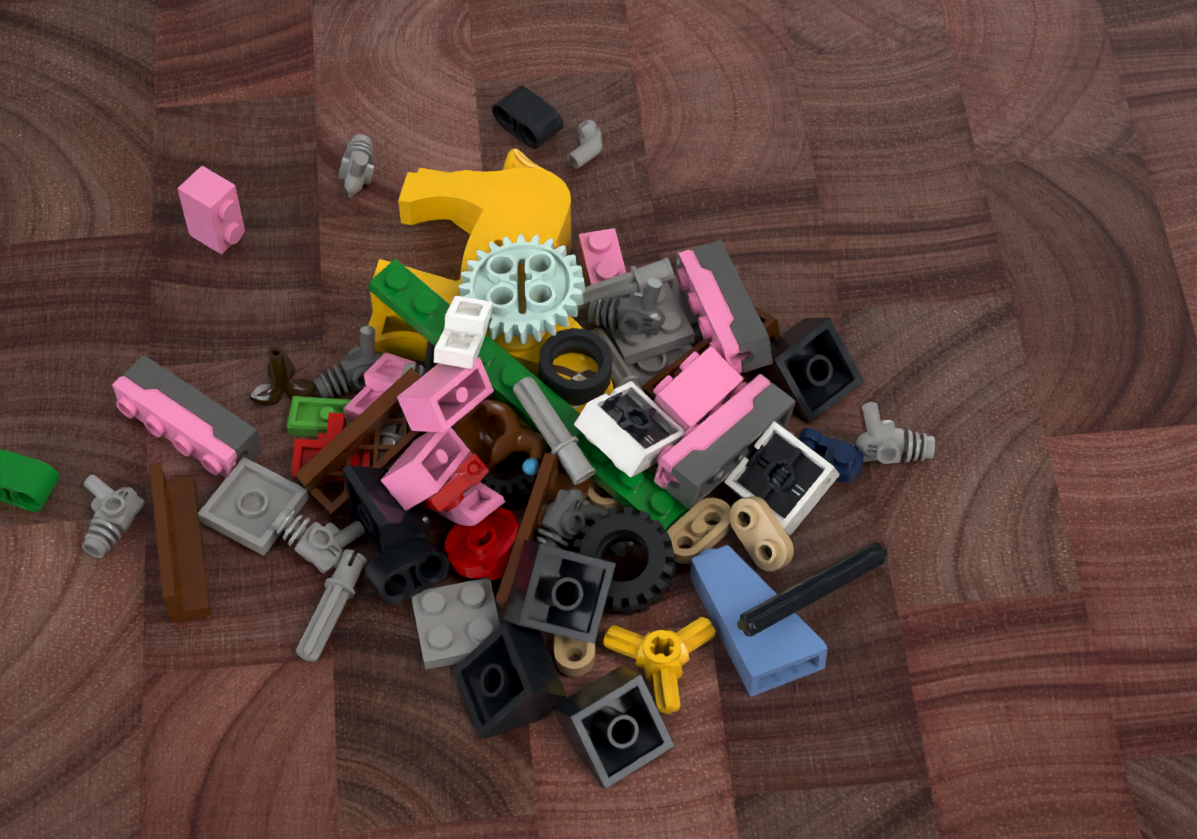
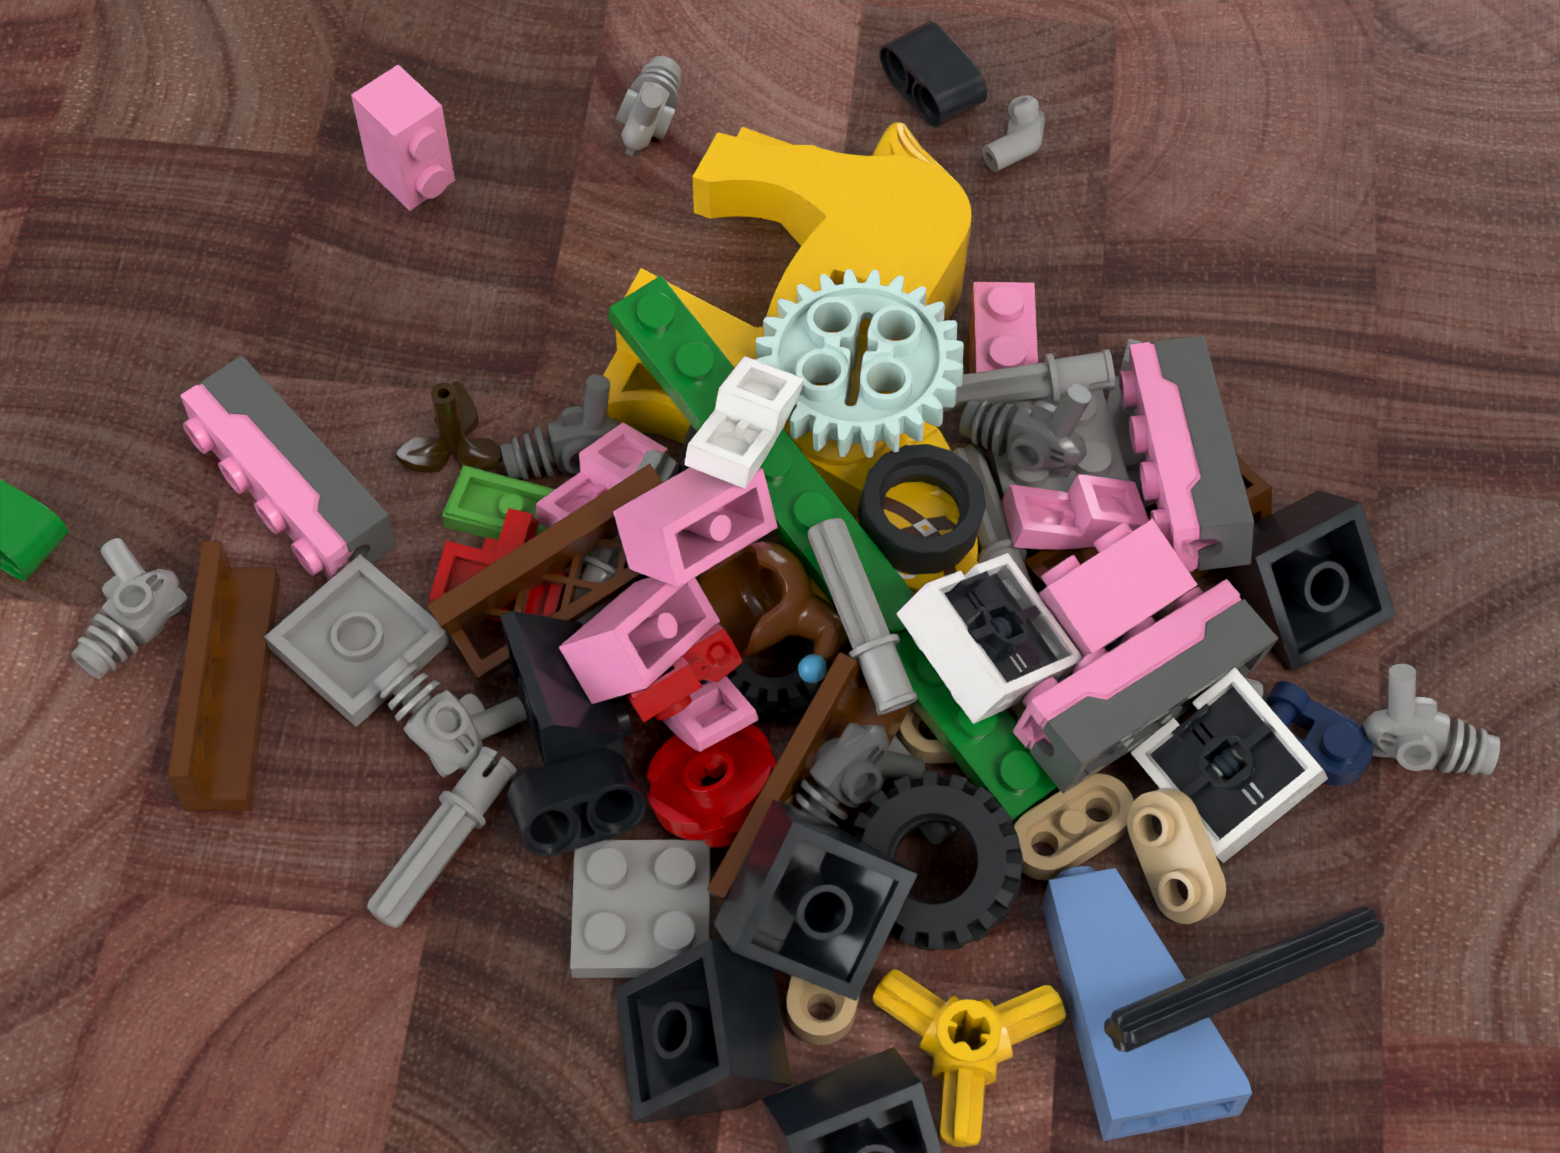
camera: 10 degrees right, 5 degrees up
(664, 358) = (1071, 518): none -> bright pink slope

